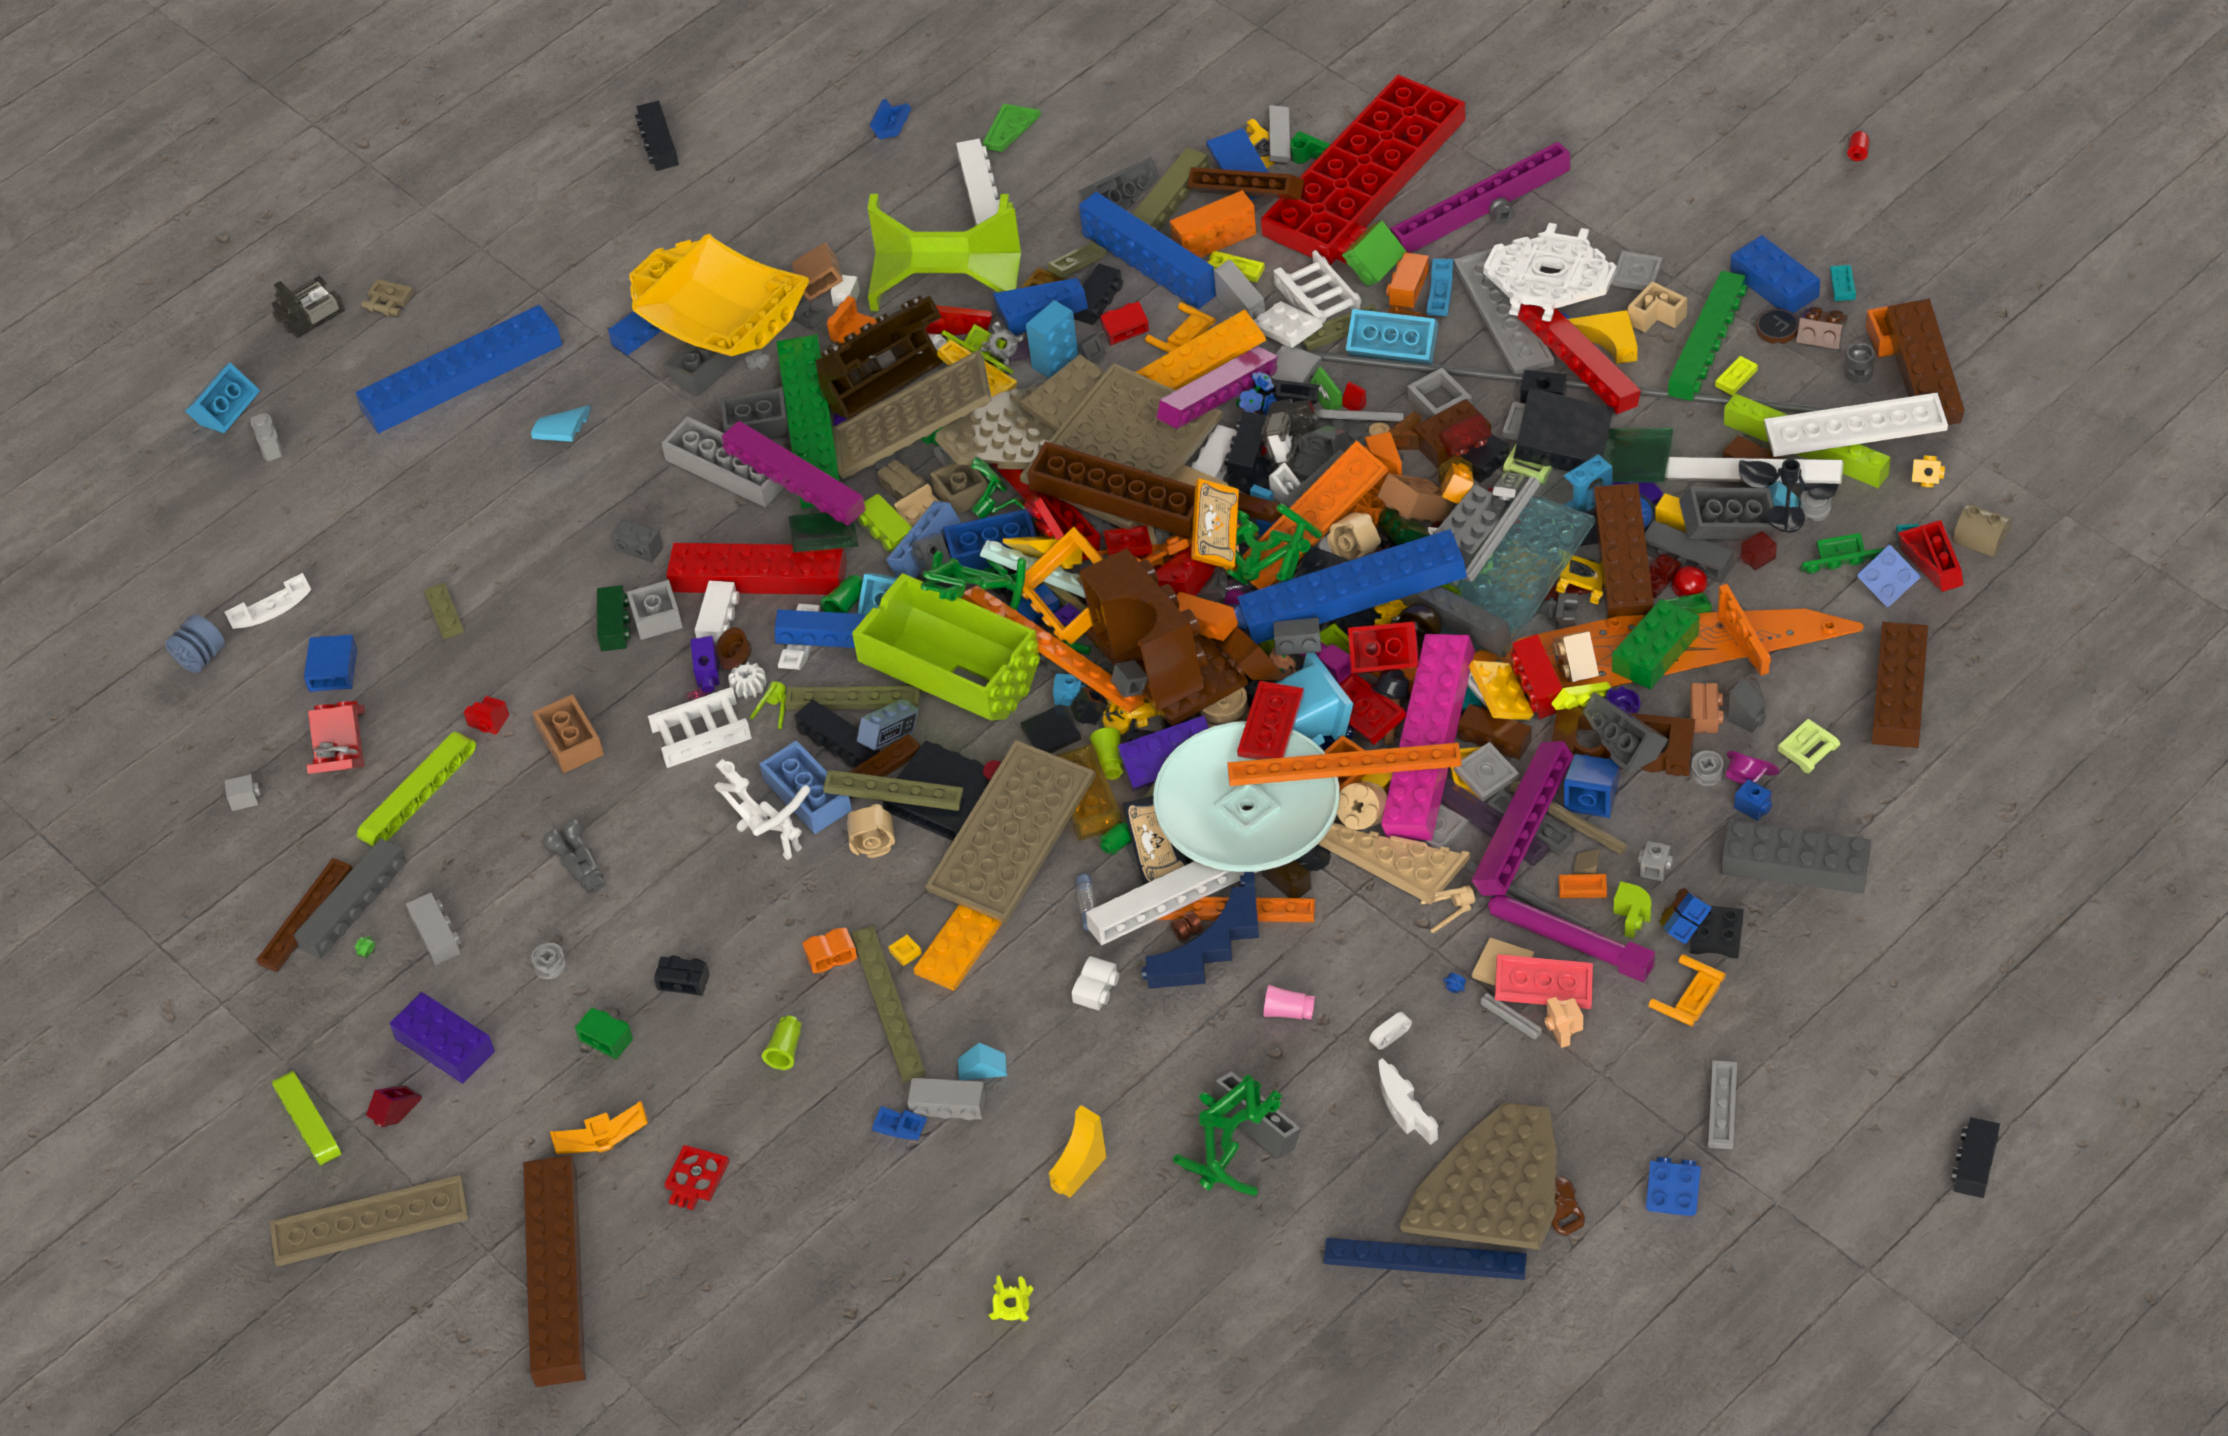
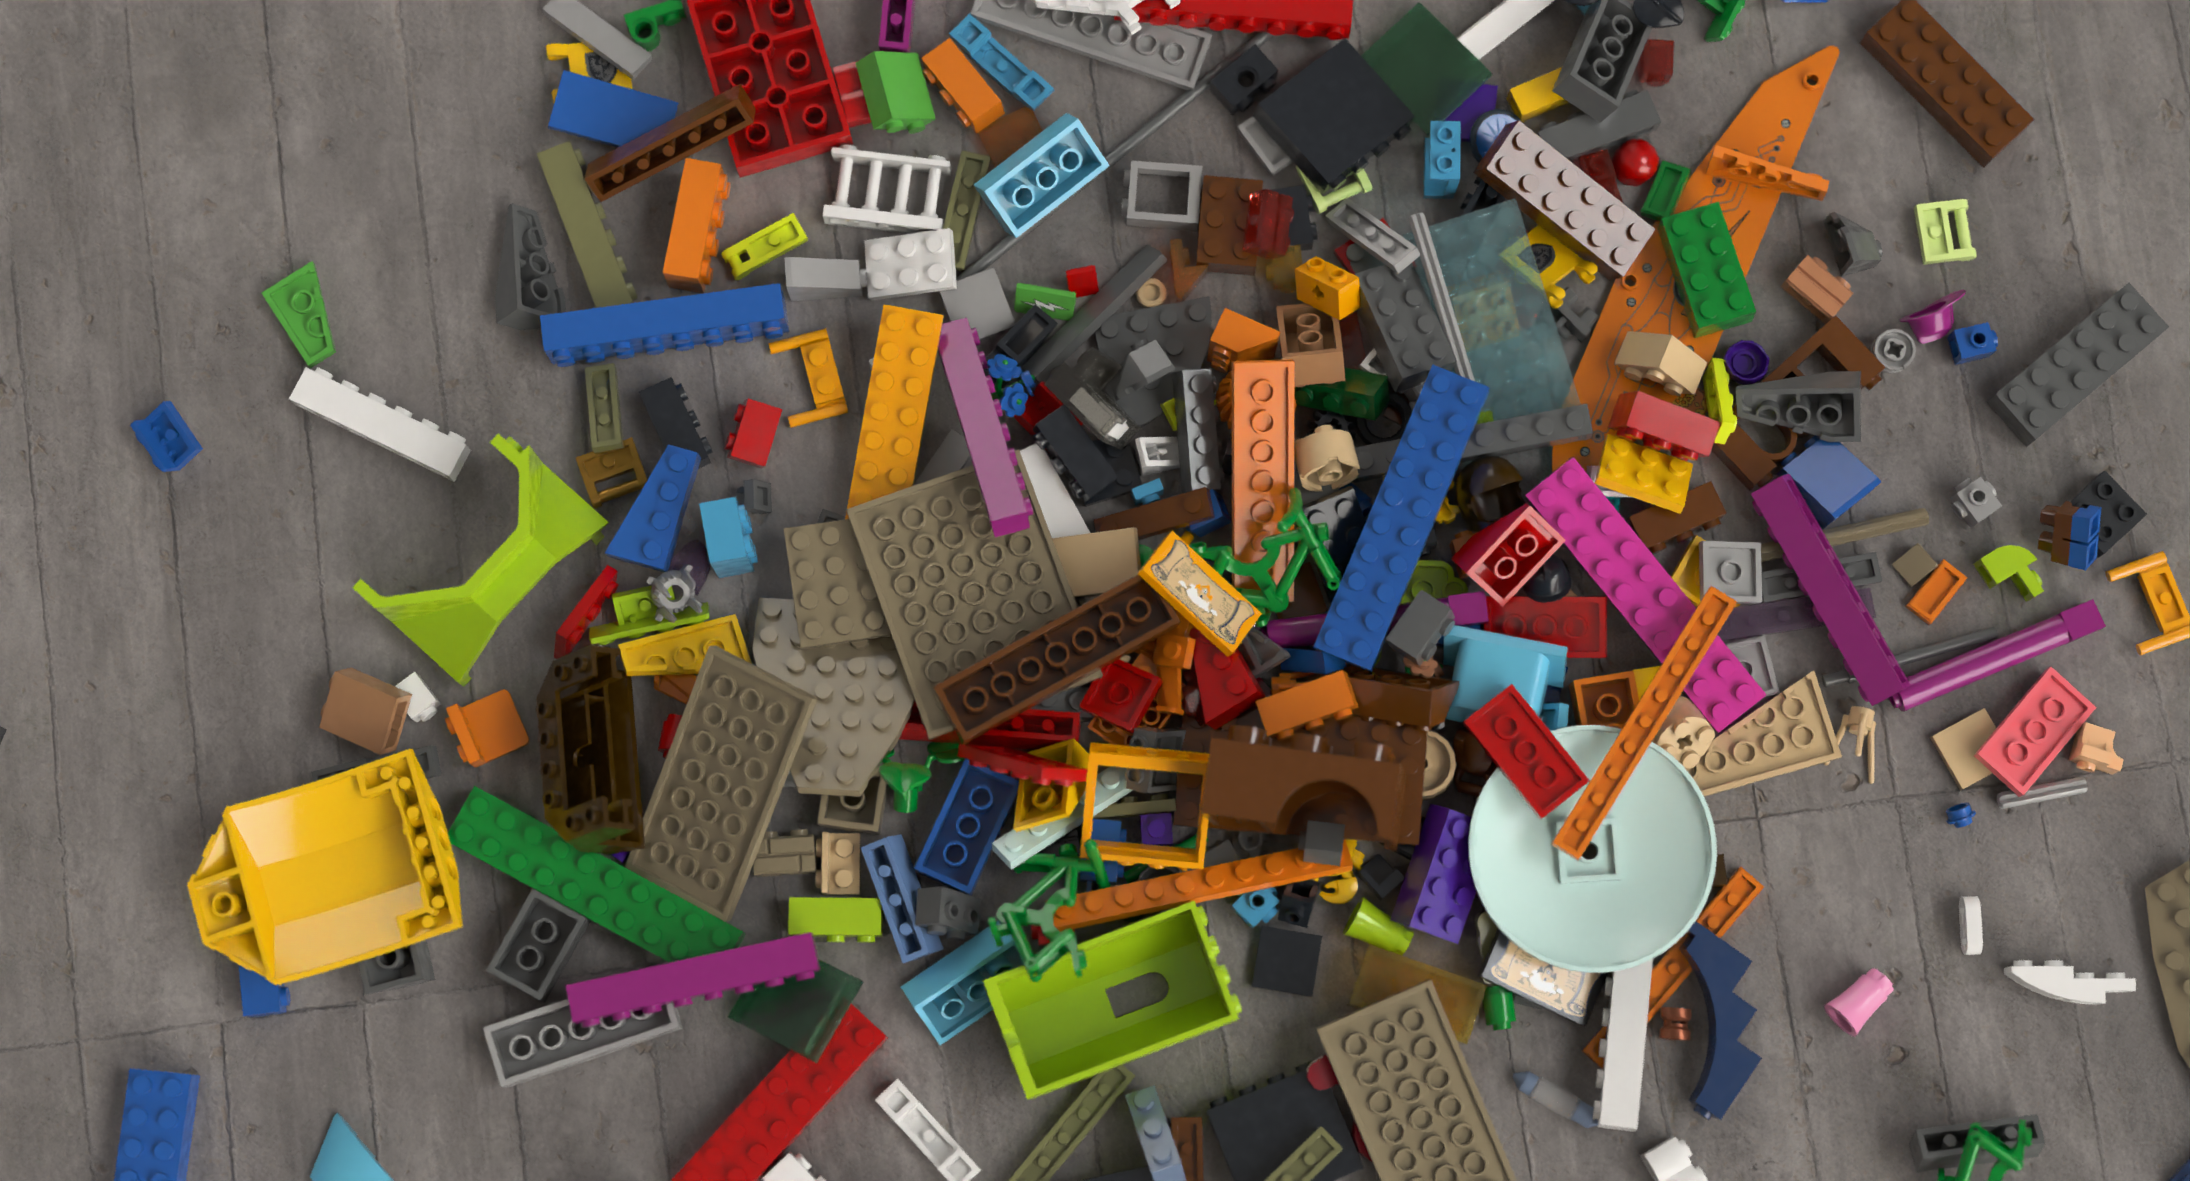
camera: 60 degrees left, 30 degrees up
(816, 628) = (939, 1105): blue brick -> none
(843, 596) = (908, 1042): green plant -> none

